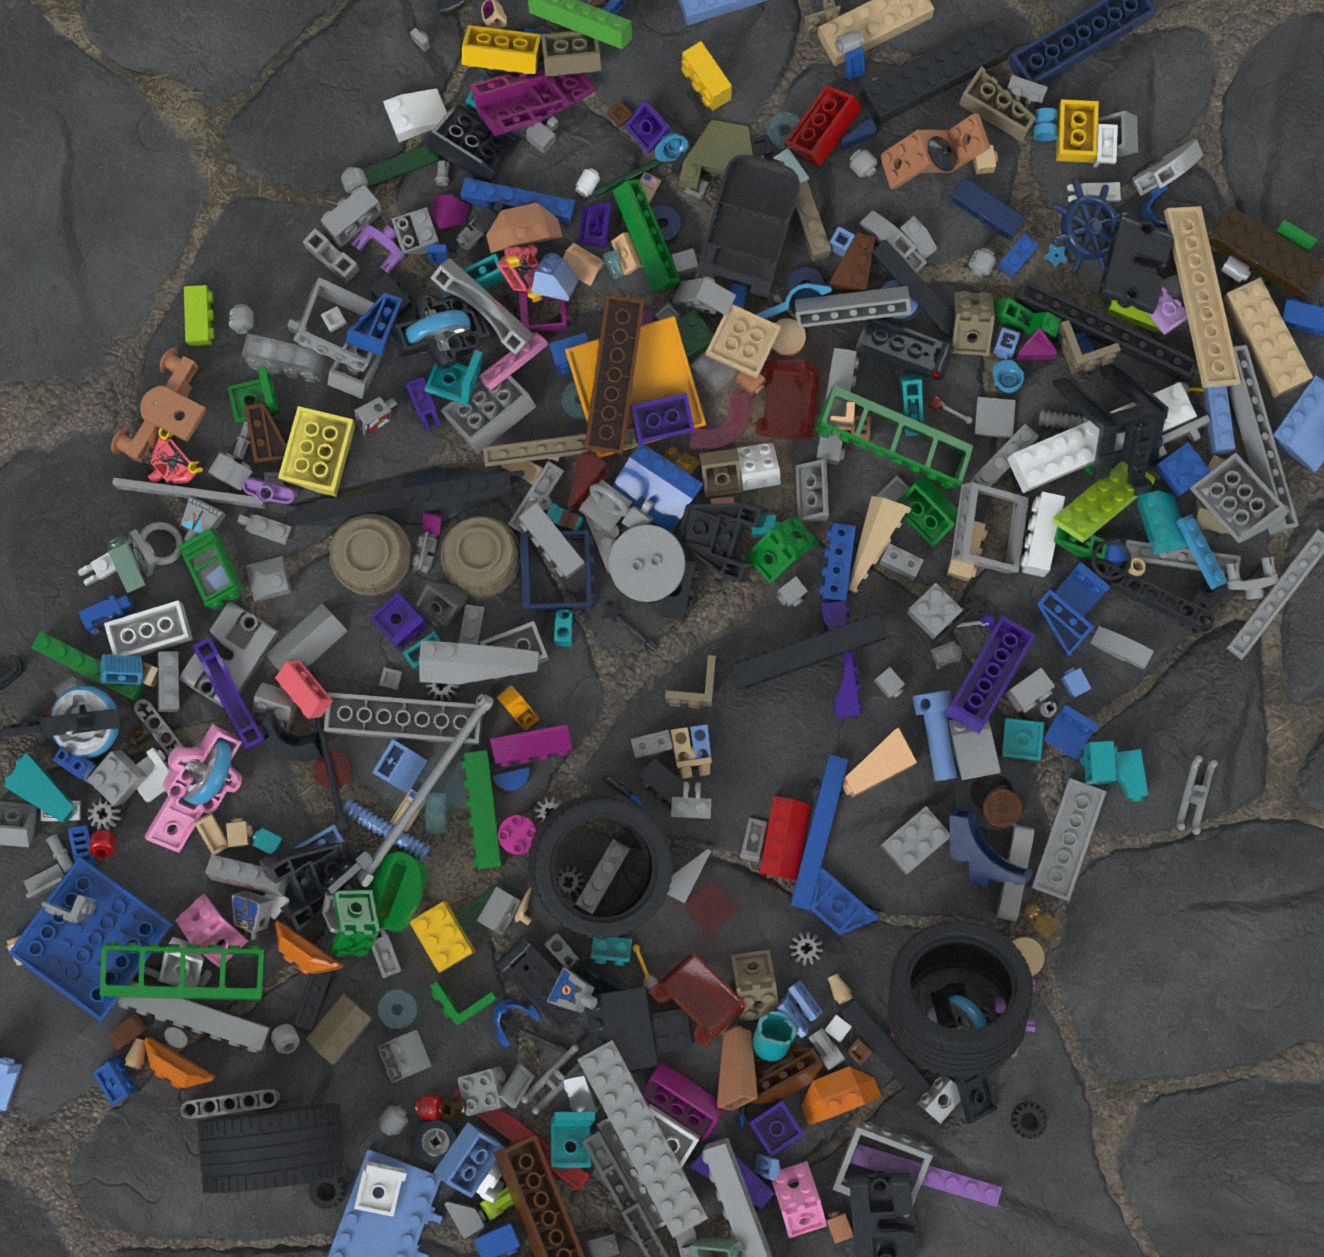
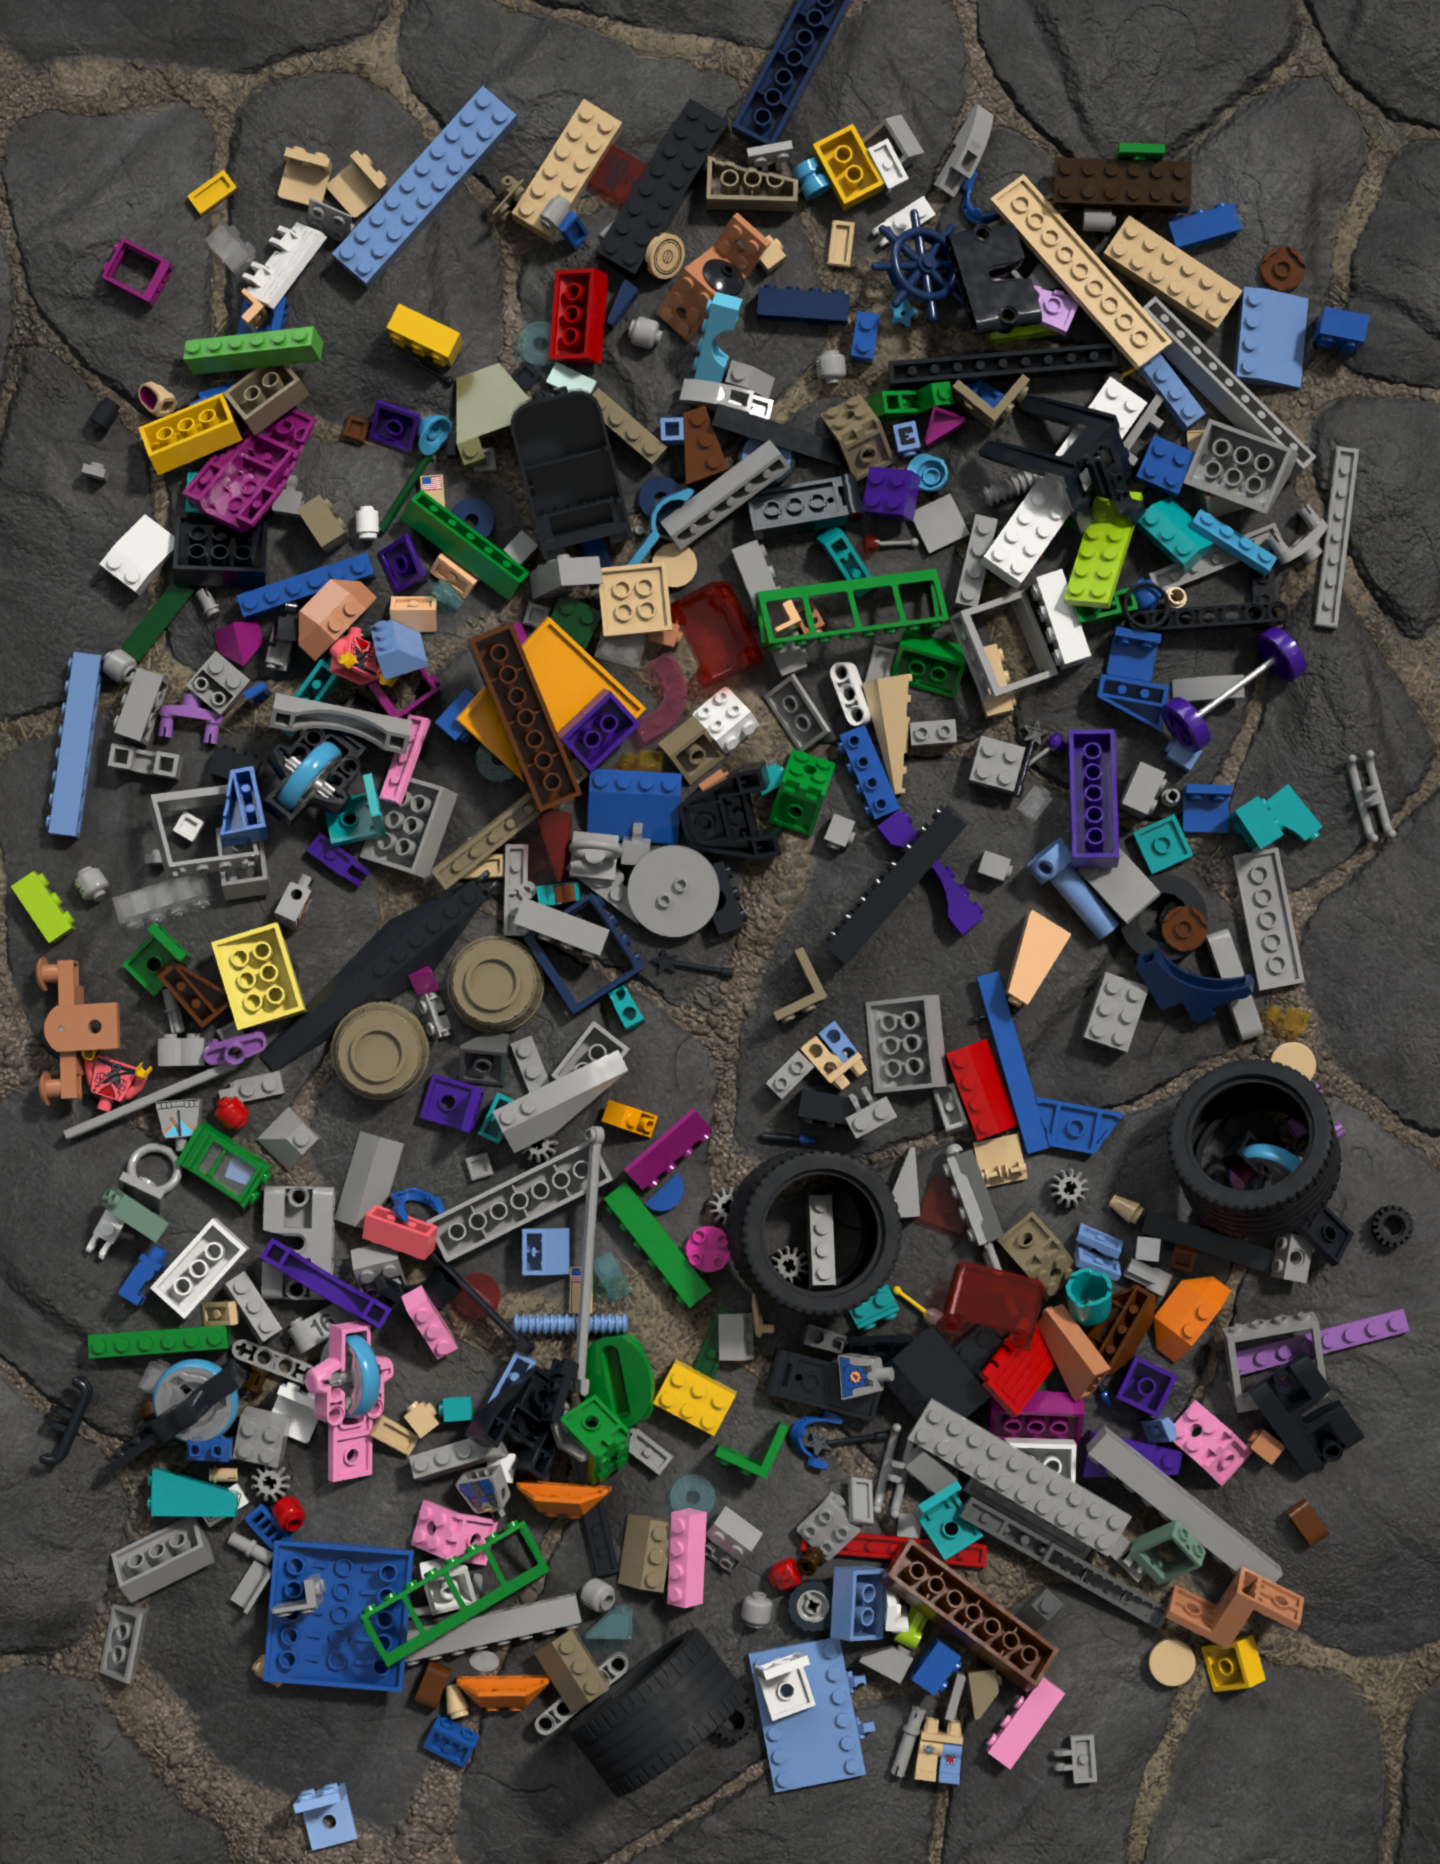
camera: 35 degrees left, 5 degrees up
(74, 789) = (223, 1474): none -> tan pin
(121, 669) = (198, 1325): dark azure brick -> none
(198, 723) = (315, 1328): none -> light grey door
(233, 1081) = (572, 1670): none -> dark tan slope
(239, 535) = (231, 1113): none -> red head
(284, 1067) = (613, 1624): none -> clear light blue slope
(285, 766) = (429, 1322): none -> bright pink brick
(290, 217) = (76, 745): none -> medium blue brick
(320, 667) = (414, 1194): none -> blue helmet
(365, 1050) = (686, 1557): none -> bright pink brick
(540, 1126) = (908, 1526): none -> light grey tile
(556, 164) = (320, 519): none -> dark tan brick
(686, 1060) = (1017, 1373): none -> red hinge
(731, 914) = (973, 1199): none -> piece
(750, 773) = (906, 1044): none -> light grey slope
(767, 898) = (1000, 1160): none -> tan hinge
(856, 491) = (842, 687): none -> white beam
(909, 44) = (617, 174): none -> clear red tile
(909, 117) = (665, 255): none -> tan tile
(925, 177) = (722, 317): none -> medium azure arch
(972, 374) = (891, 493): none -> dark purple brick
(1040, 182) = (841, 244): none -> tan tile
(1189, 656) = (1279, 654): none -> dark purple axle

